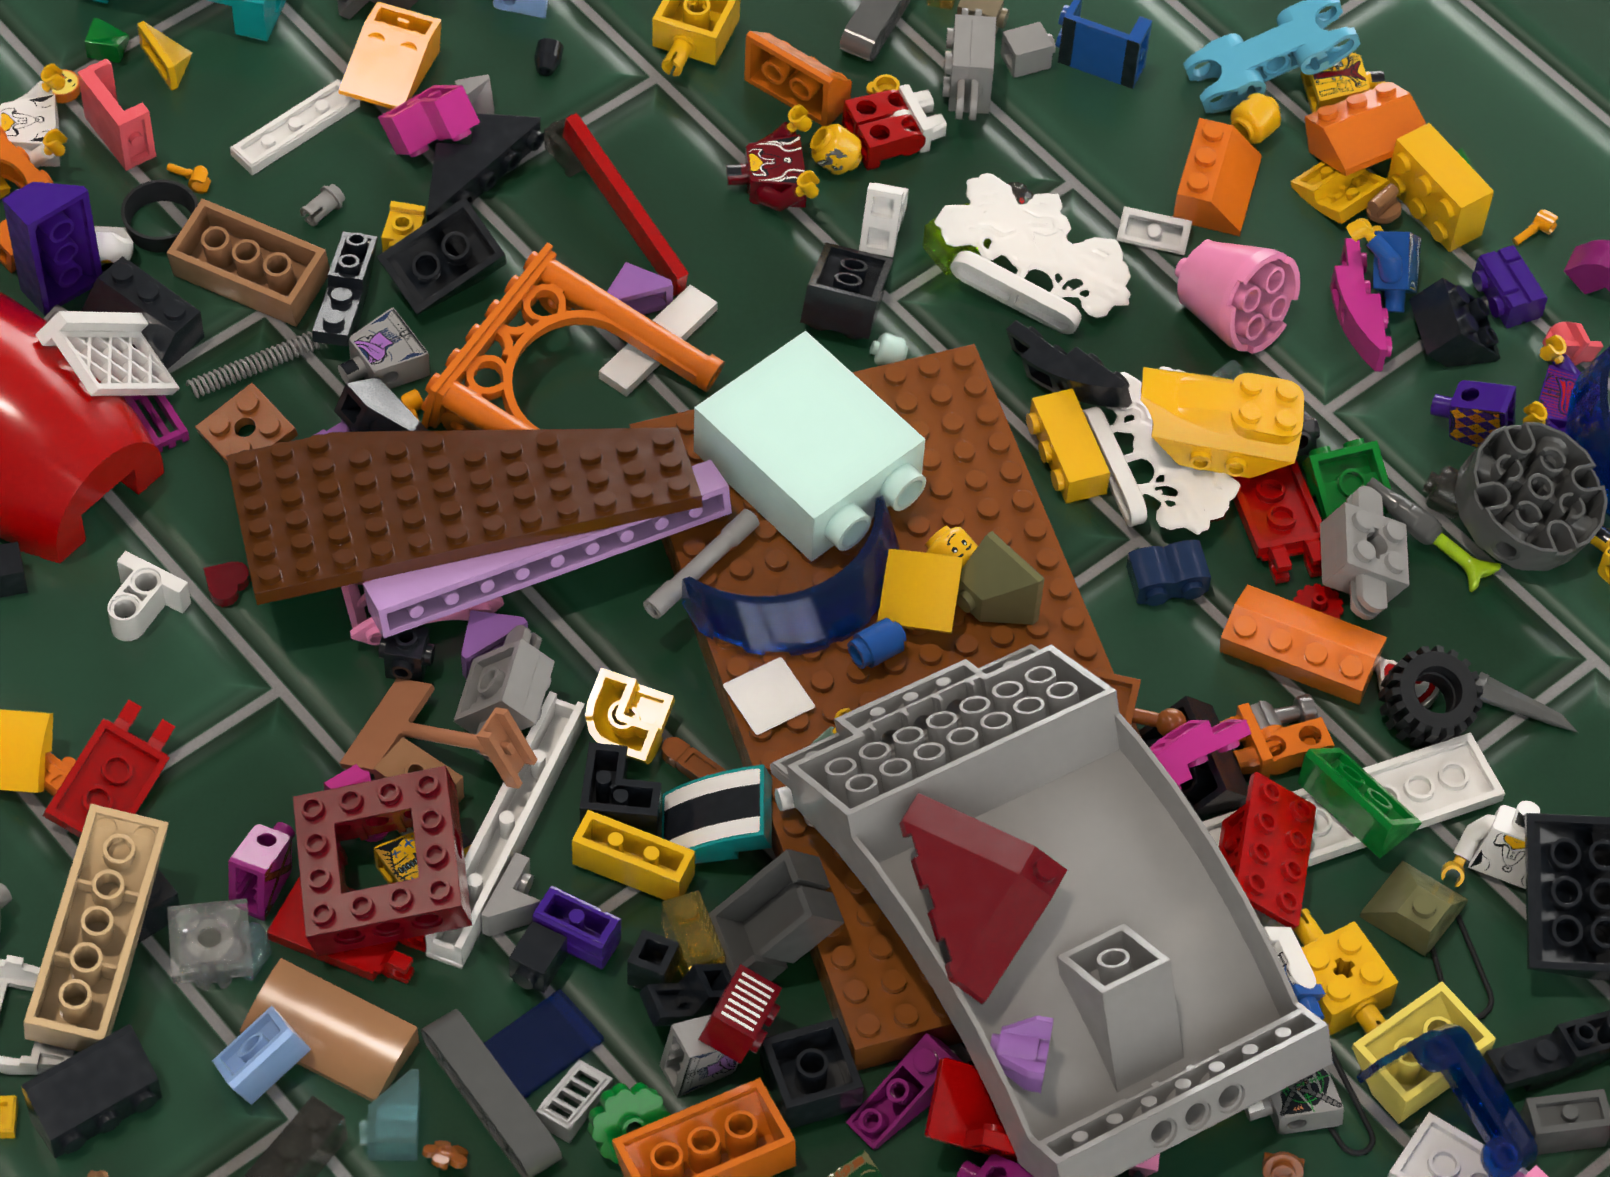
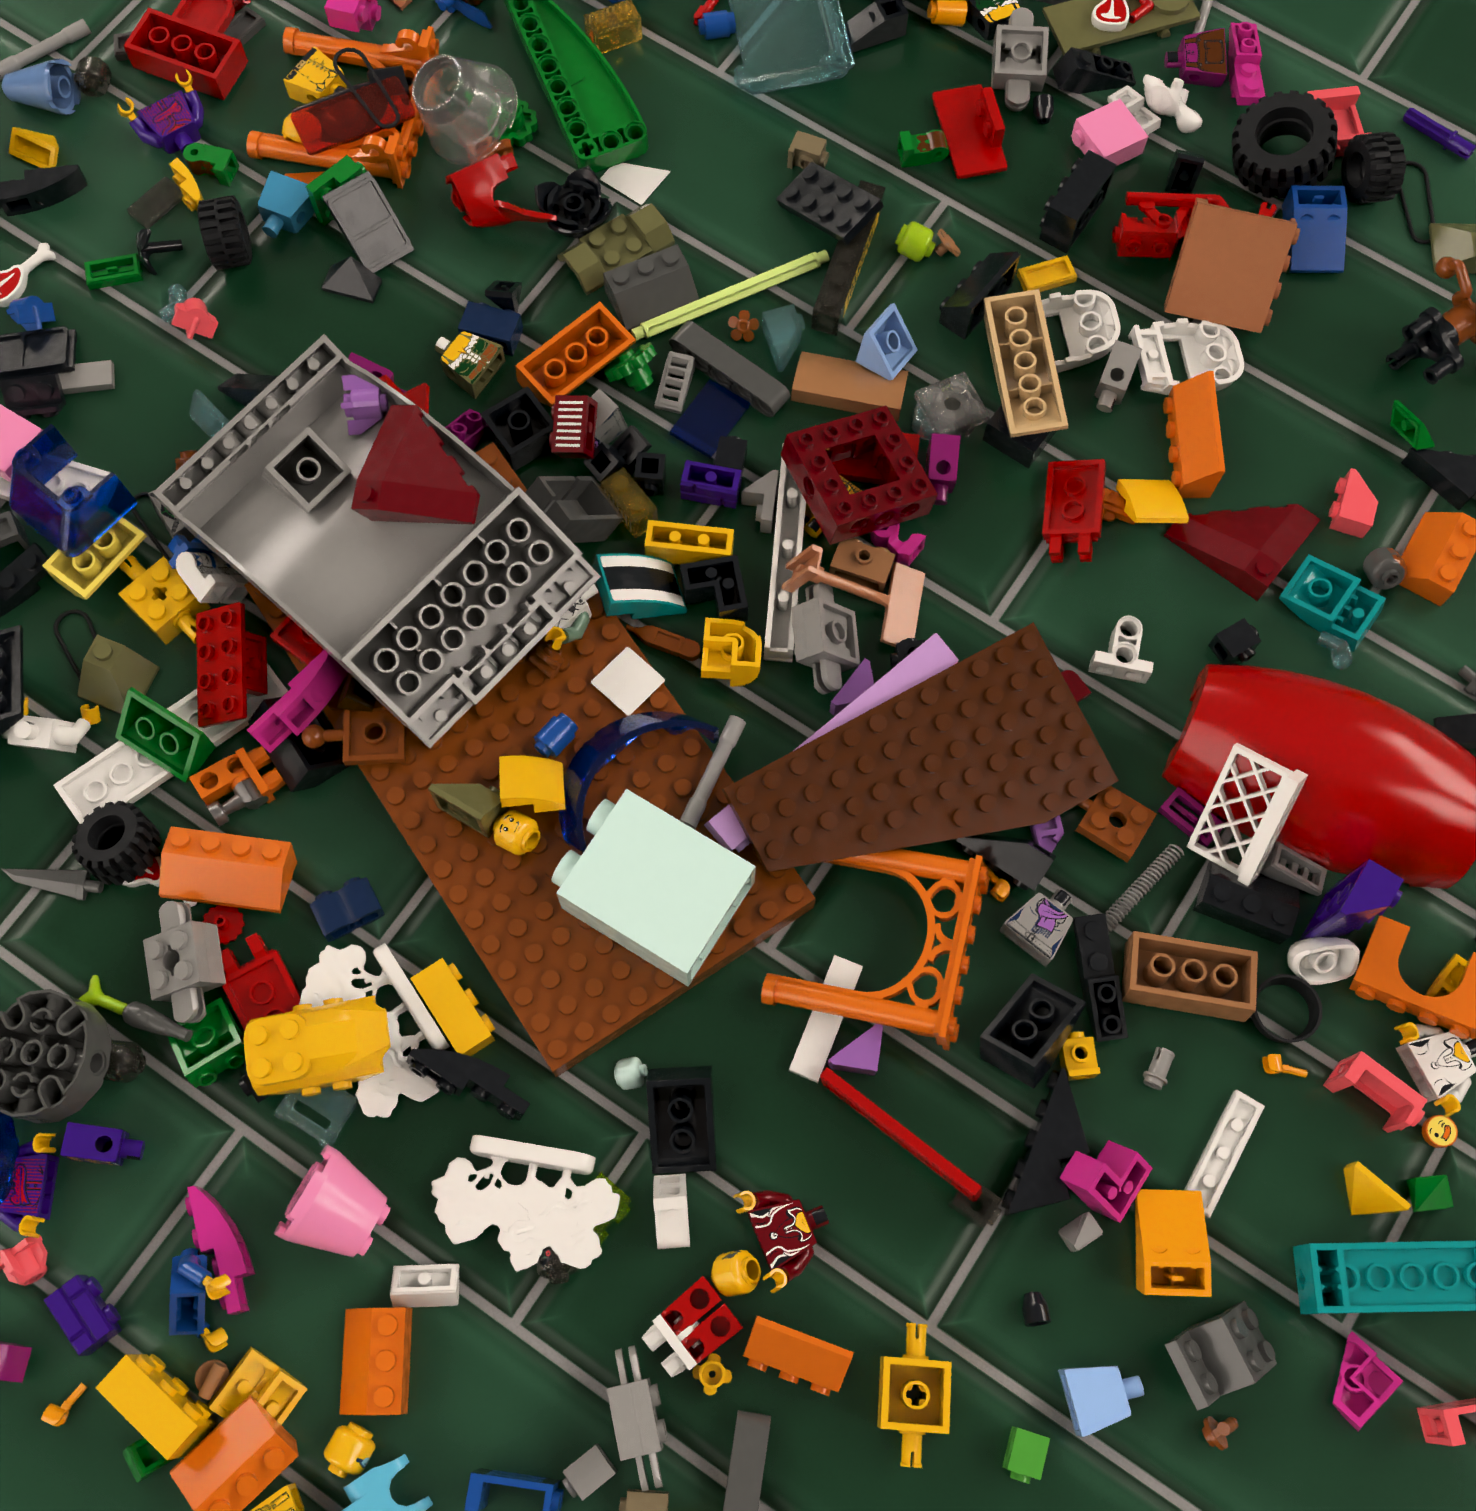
camera: 165 degrees right, 15 degrees up
(1454, 325) = (130, 1248): black slope -> none

